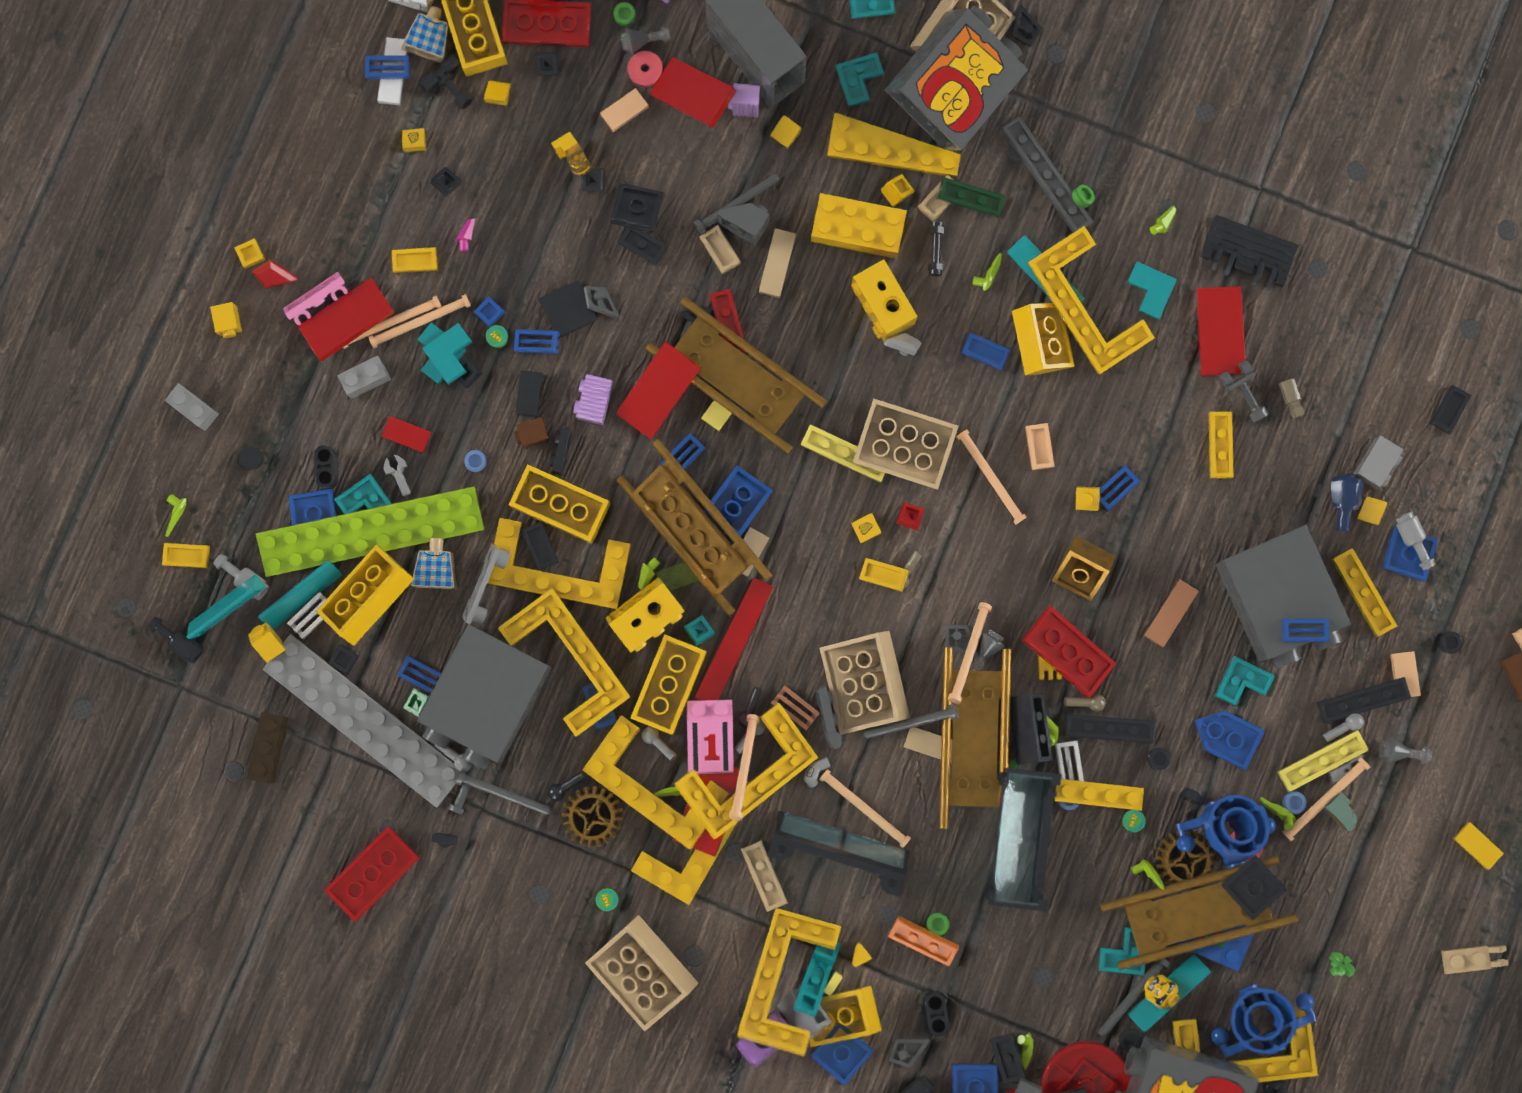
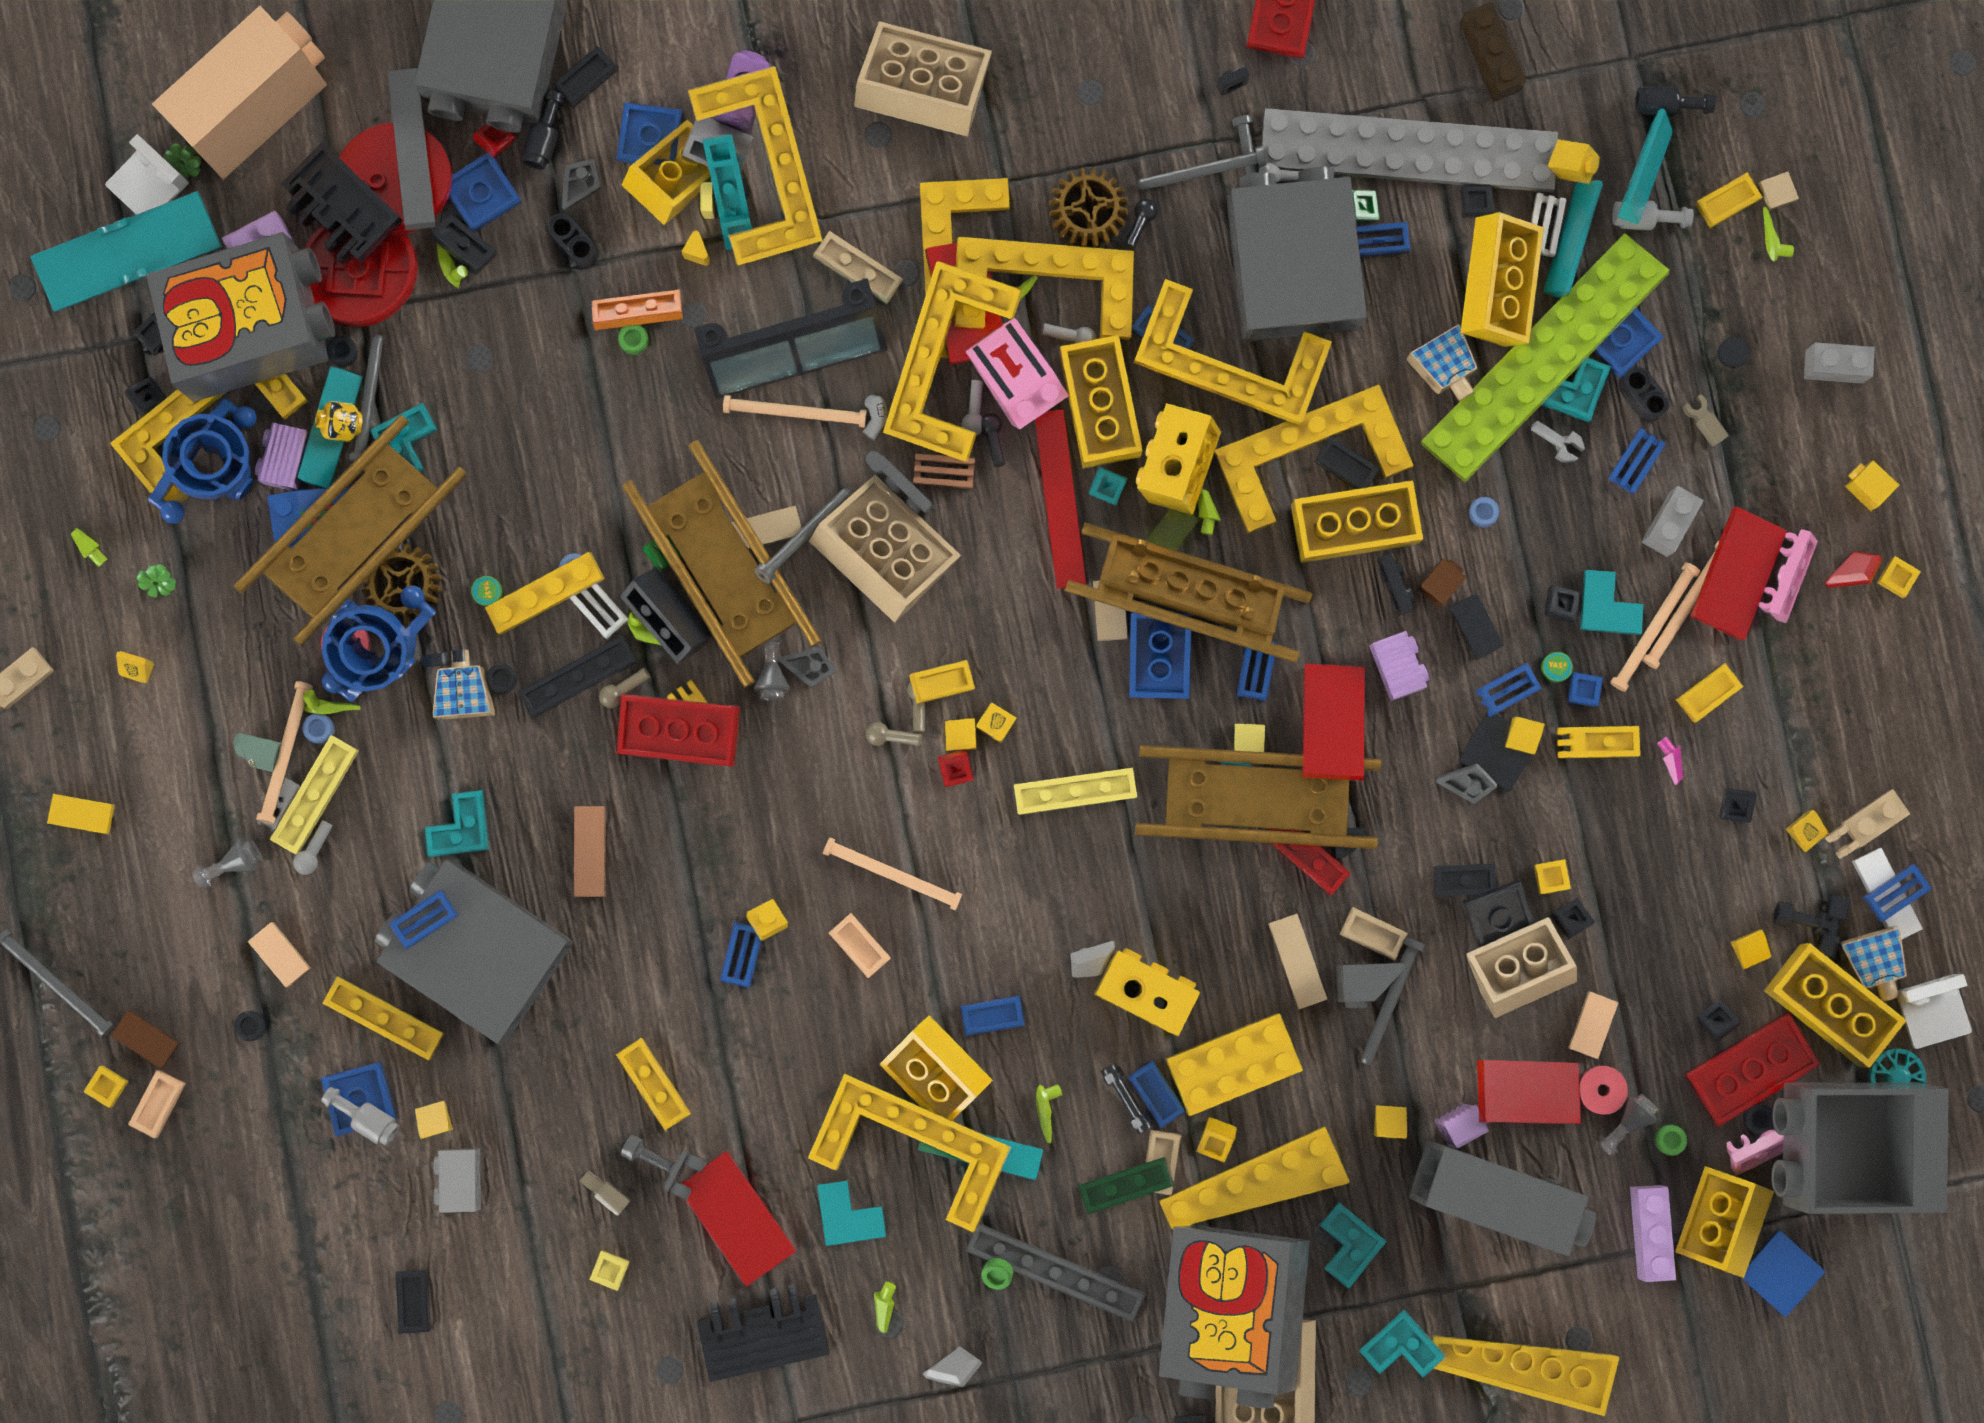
camera: 145 degrees right, 0 degrees up
(150, 540) = (1778, 191): none -> tan tile
(298, 425) = (1706, 422): none -> dark tan bar
(341, 437) = (1650, 440): none -> blue tile
(373, 120) = (1869, 822): none -> tan hinge
(406, 434) = (1580, 491): red tile -> none
(443, 351) = (1605, 609): teal tile -> none
(494, 557) = (1368, 341): light grey brick -> none
(502, 273) = (1600, 742): none -> yellow hinge
(546, 306) = (1524, 735): none -> yellow slope
(575, 156) = (1624, 936): leg -> none
(588, 212) = (1552, 876): none -> yellow plate
(607, 899) = (1012, 132): bright green tile -> none
(644, 170) = (1522, 967): none -> tan slope
(752, 721) = (956, 361): light nougat bar -> none
(893, 535) = (960, 734): none -> yellow slope
(905, 444) = (1014, 844): tan slope -> none
(915, 240) = (1156, 1094): none -> blue tile
(943, 569) = (879, 734): none -> dark tan bar
(984, 609) = (788, 654): light nougat bar -> none
(1022, 839) = (597, 485): clear light blue windscreen -> none
(1083, 568) = (721, 836): pearl gold slope -> none
(1145, 157) = (954, 1368): none -> light grey piece
(1150, 871) = (439, 548): lime bar -> none
(1189, 766) = (461, 690): none -> torso
(1211, 993) = (282, 456): none -> lavender brick
(1229, 737) = (436, 753): blue tile -> none
(1254, 887) = (305, 592): black tile -> none
(1318, 350) = (609, 1270): none -> light yellow tile
(1346, 497) = (470, 1114): dark blue piece -> none
(1363, 700) = (309, 894): black tile -> none
(1372, 1017) = (88, 547): none -> lime bar
(1388, 918) = (134, 667): none -> yellow slope

